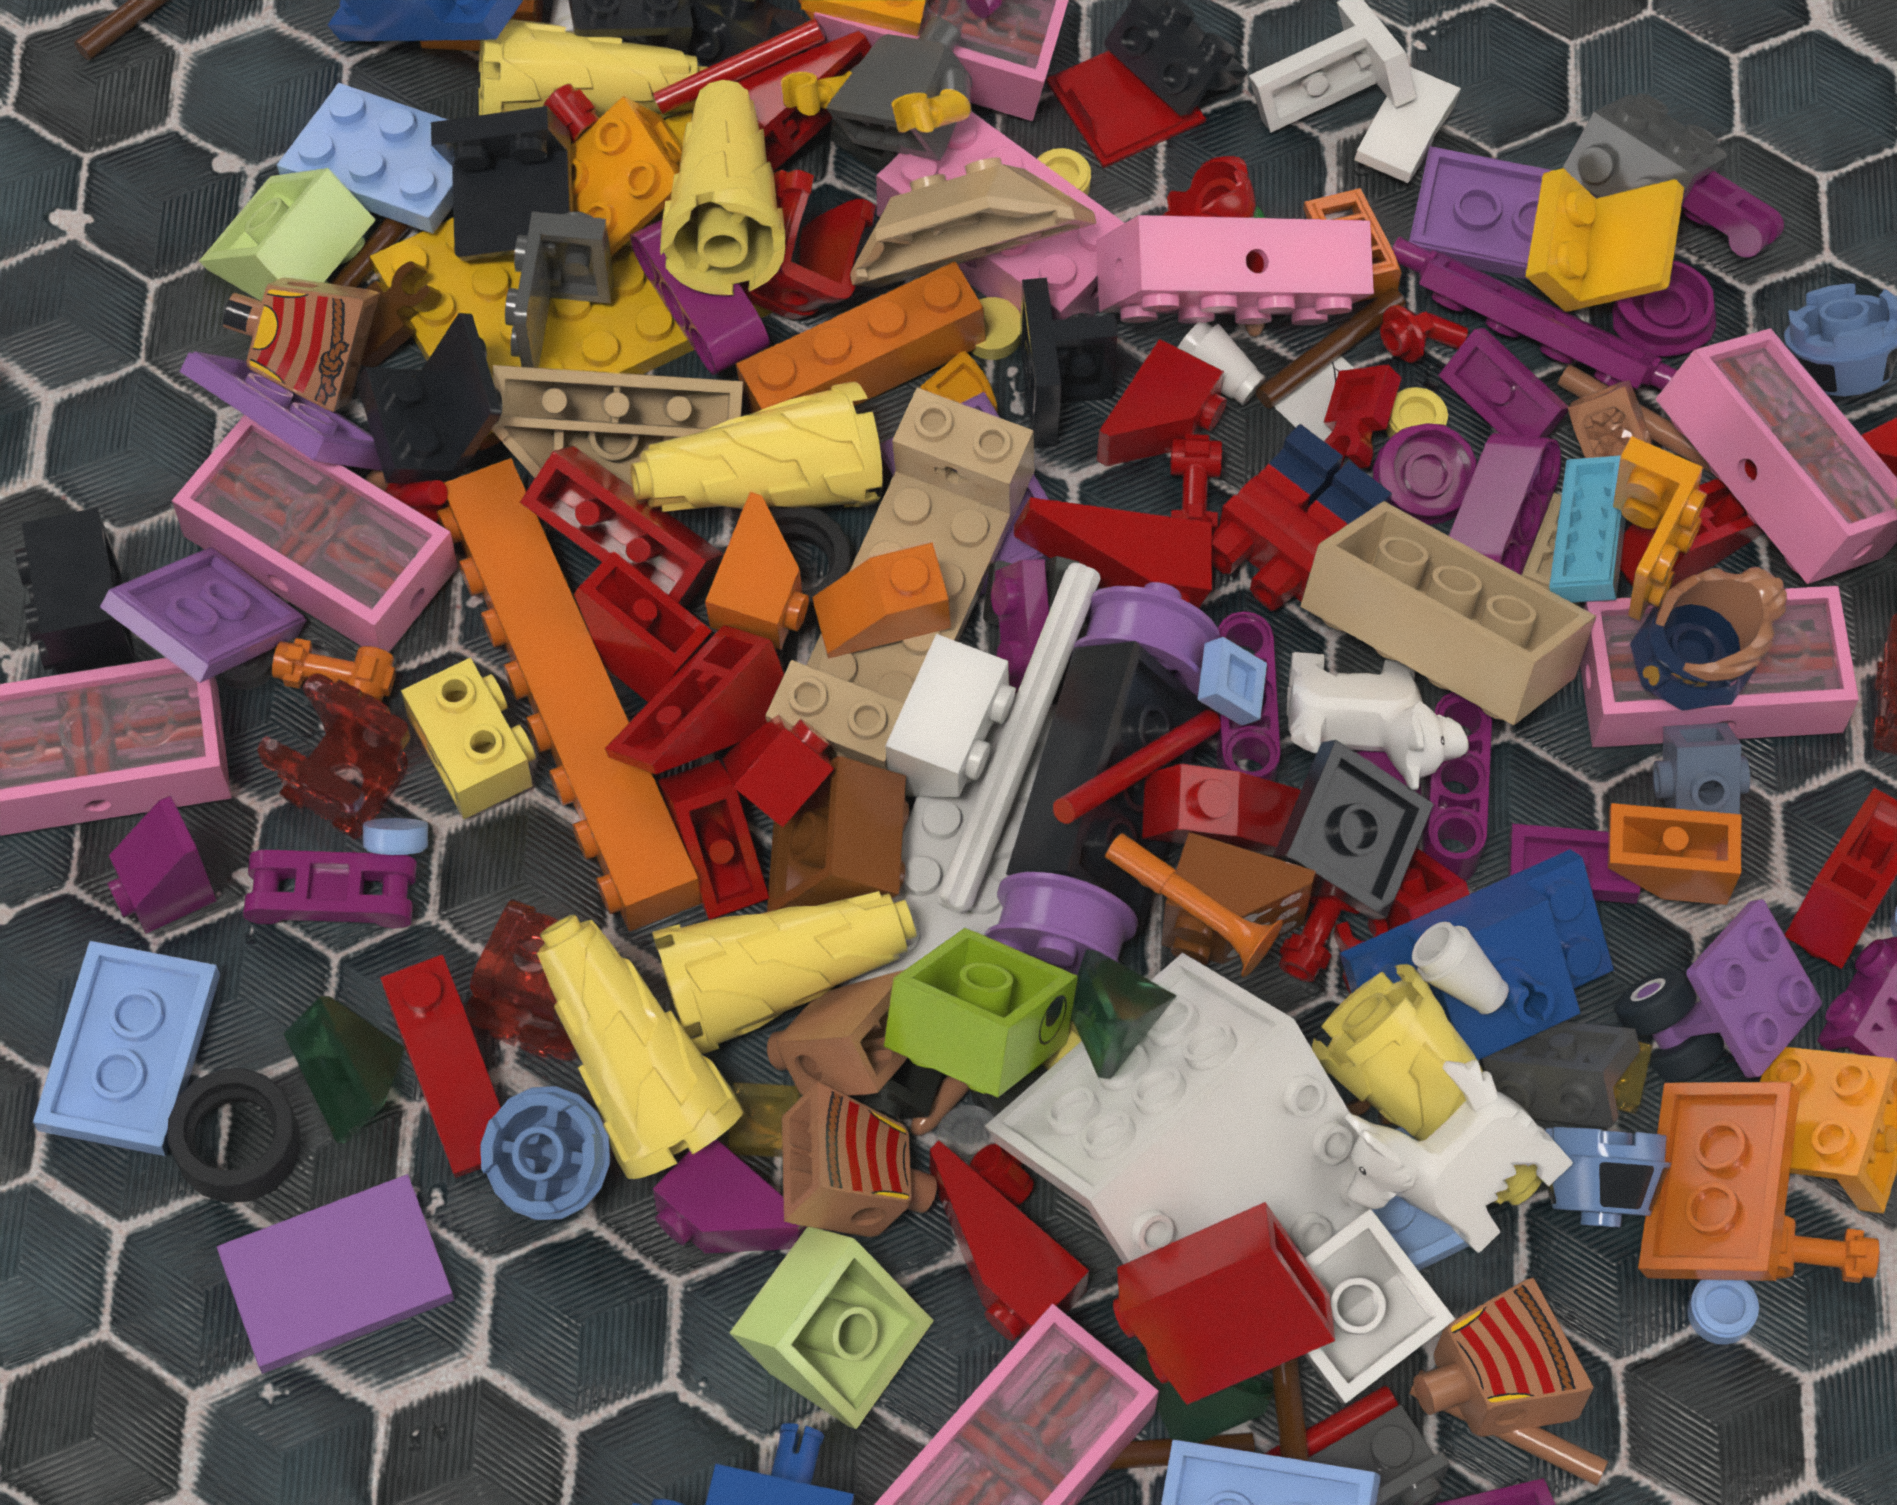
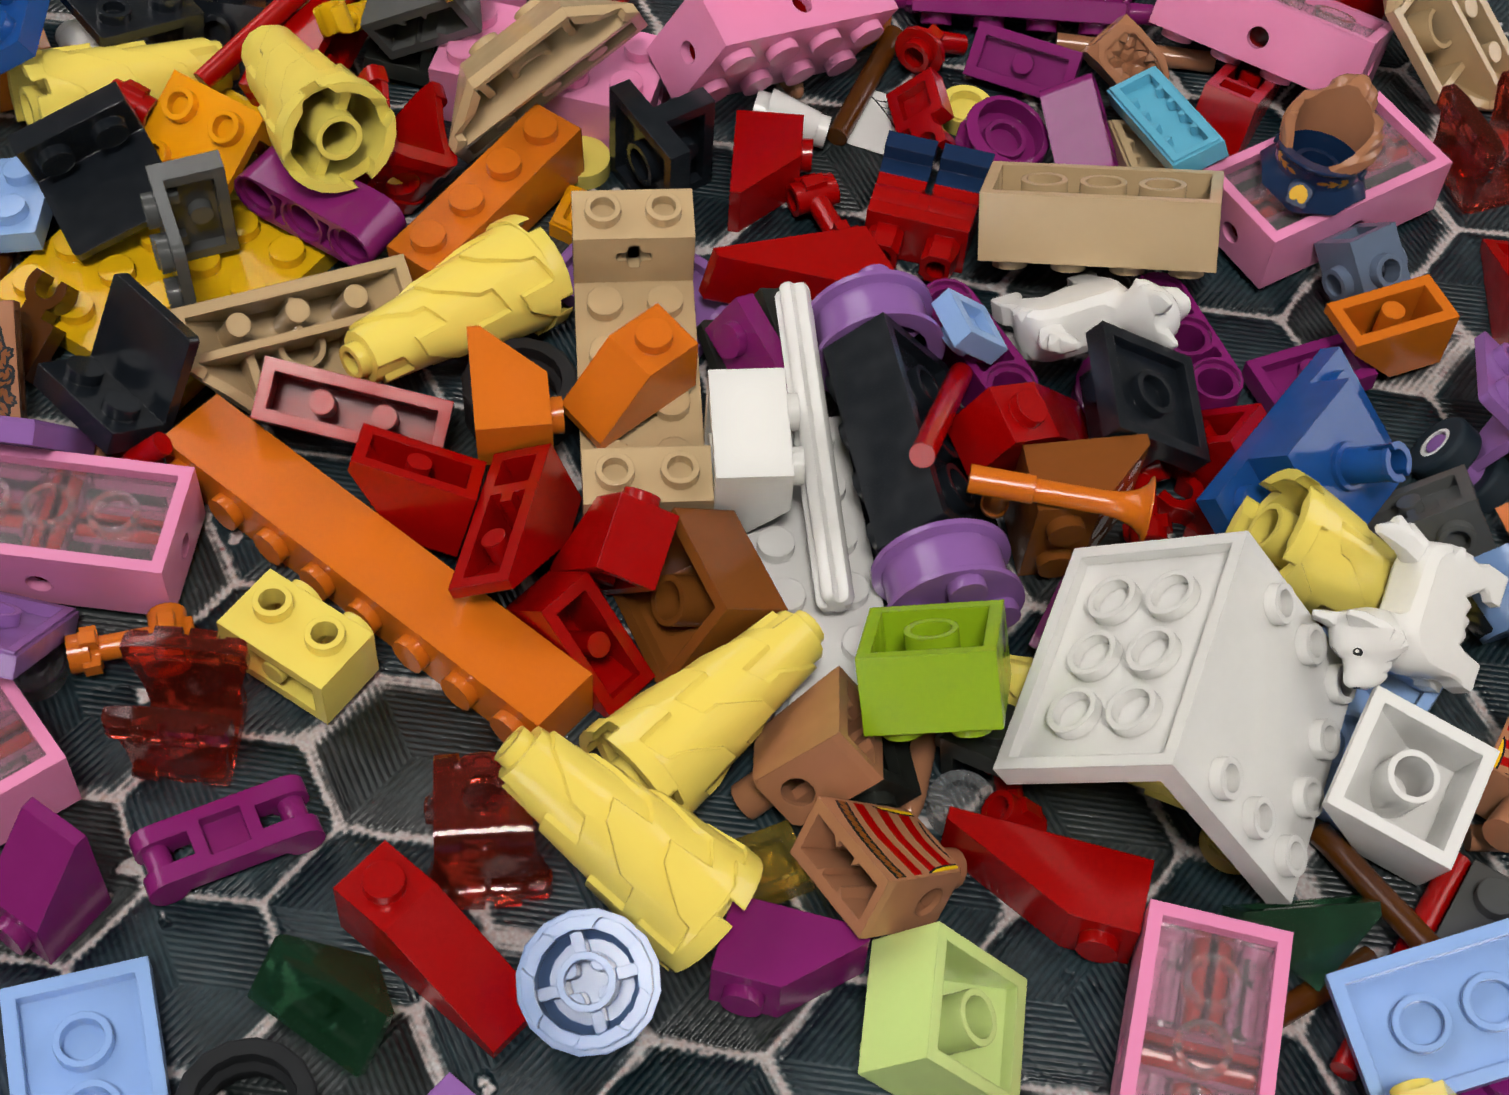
camera: 30 degrees left, 10 degrees down
(395, 836) = (270, 762): light blue tile -> none
(1114, 1010) = (1053, 616): clear green slope -> none
(1224, 1304) = (1321, 817): red brick -> none
(1458, 966) = (1323, 453): white cone -> none
(1660, 492) = (1236, 54): light orange bracket -> none

